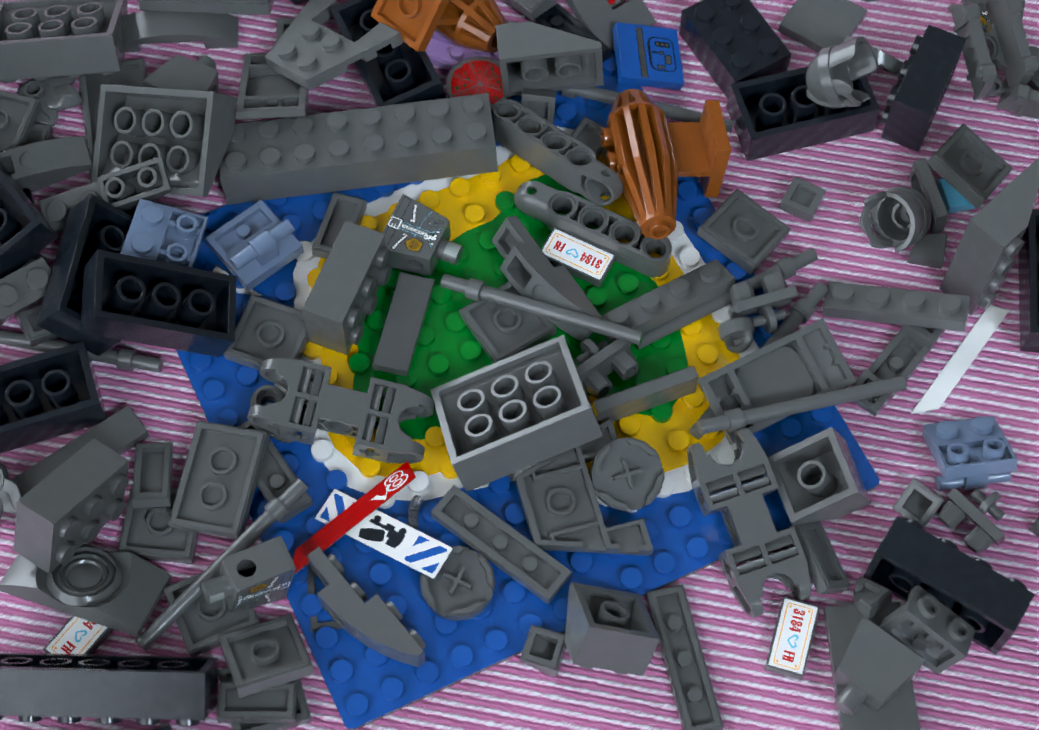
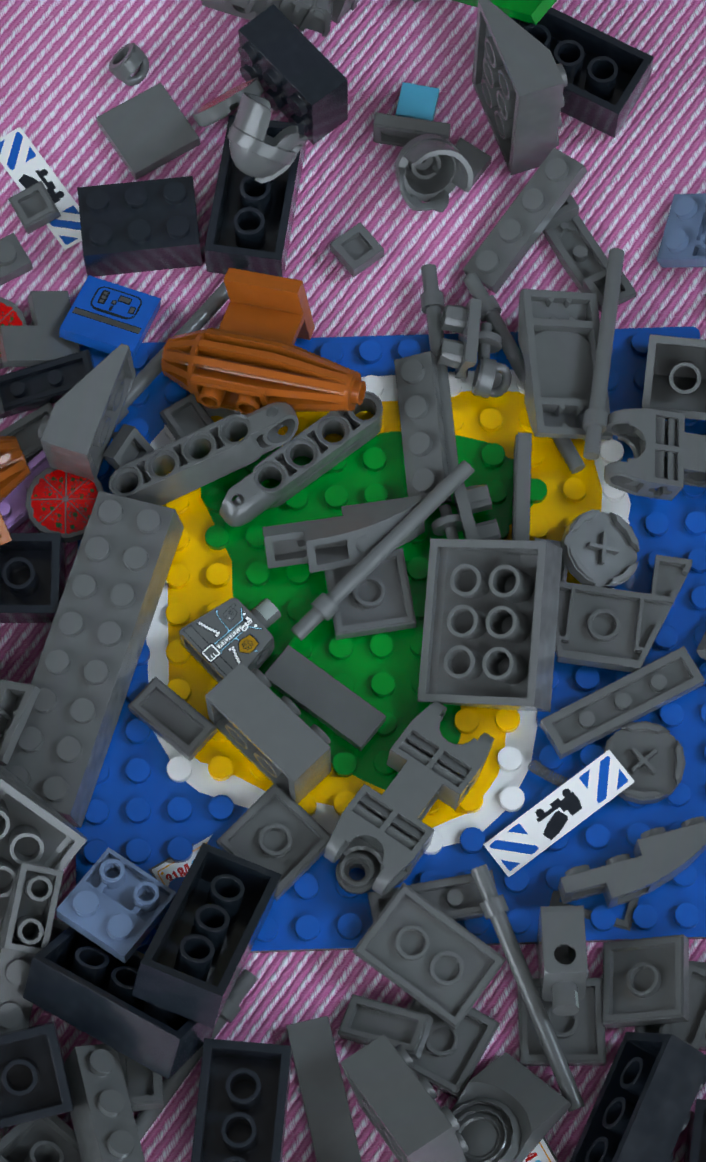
camera: 65 degrees left, 5 degrees up
(255, 245) = (156, 813): sand blue plate -> none
(354, 514) = (524, 831): red sticker -> none
(578, 257) = (326, 491): tile -> none
(743, 231) = (369, 321): dark grey tile -> none
(961, 359) = (602, 199): white sticker -> none
(970, 165) = (398, 78): dark grey tile -> none

